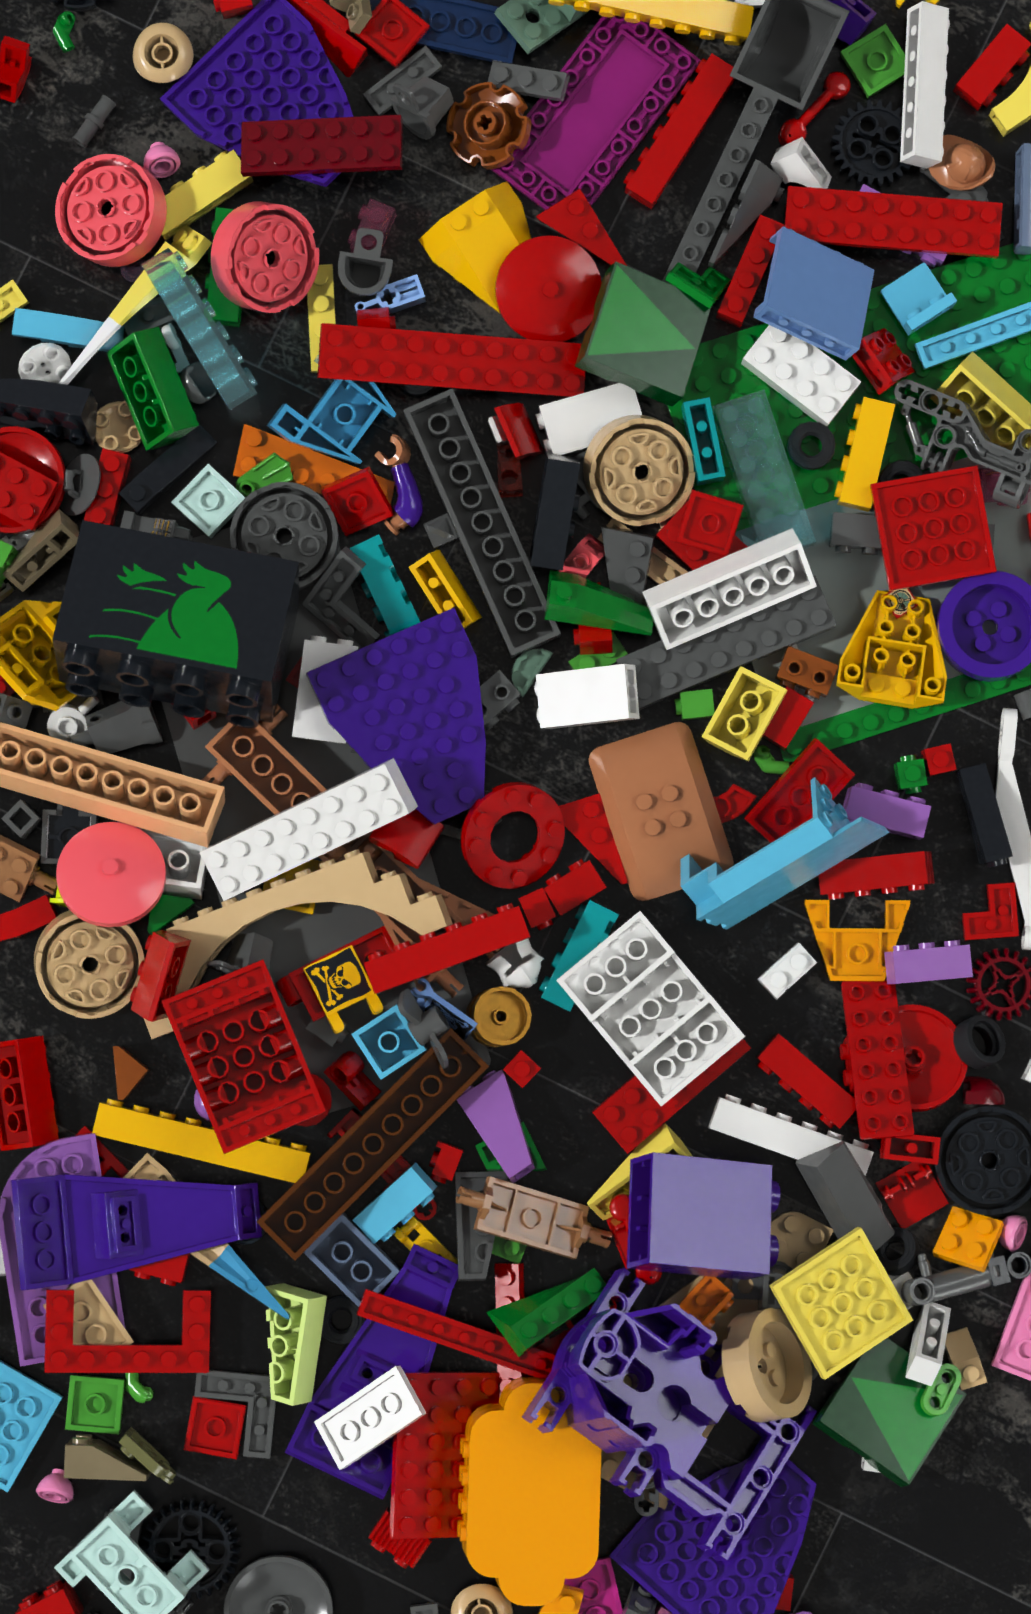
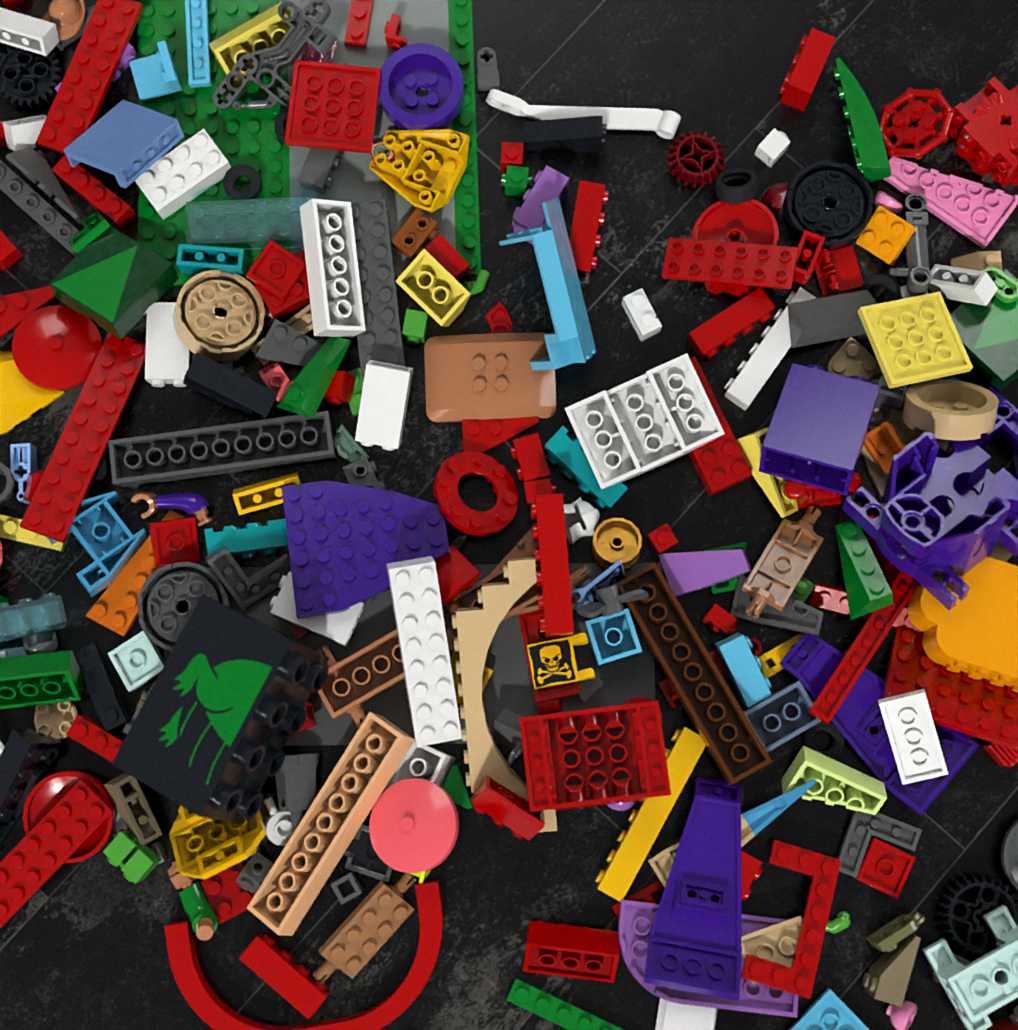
camera: 75 degrees left, 5 degrees down
(80, 484) = (90, 761): dark grey shield -> none
(81, 992) = (489, 889): tan brick -> none
(95, 1404) = (842, 962): bright green plate -> none
(128, 1071) = (577, 857): dark orange slope -> none
(268, 471) = (128, 608): bright green piece -> none
(349, 1078) = (631, 678): red plate -> none
(440, 531) = (219, 485): dark grey tile -> none
(497, 431) = (155, 416): slope -> none
(508, 473) = (189, 417): clear red leg -> none
(519, 430) = (158, 400): red slope -> none
(790, 798) = (508, 268): red plate -> none
(856, 952) = (641, 259): light orange wing -> none
(865, 453) = (261, 144): yellow brick -> none
(882, 360) = (195, 113): red bracket -> none
(928, 962) = (665, 207): medium lavender brick -> none
(999, 920) = (646, 148): red plate -> none

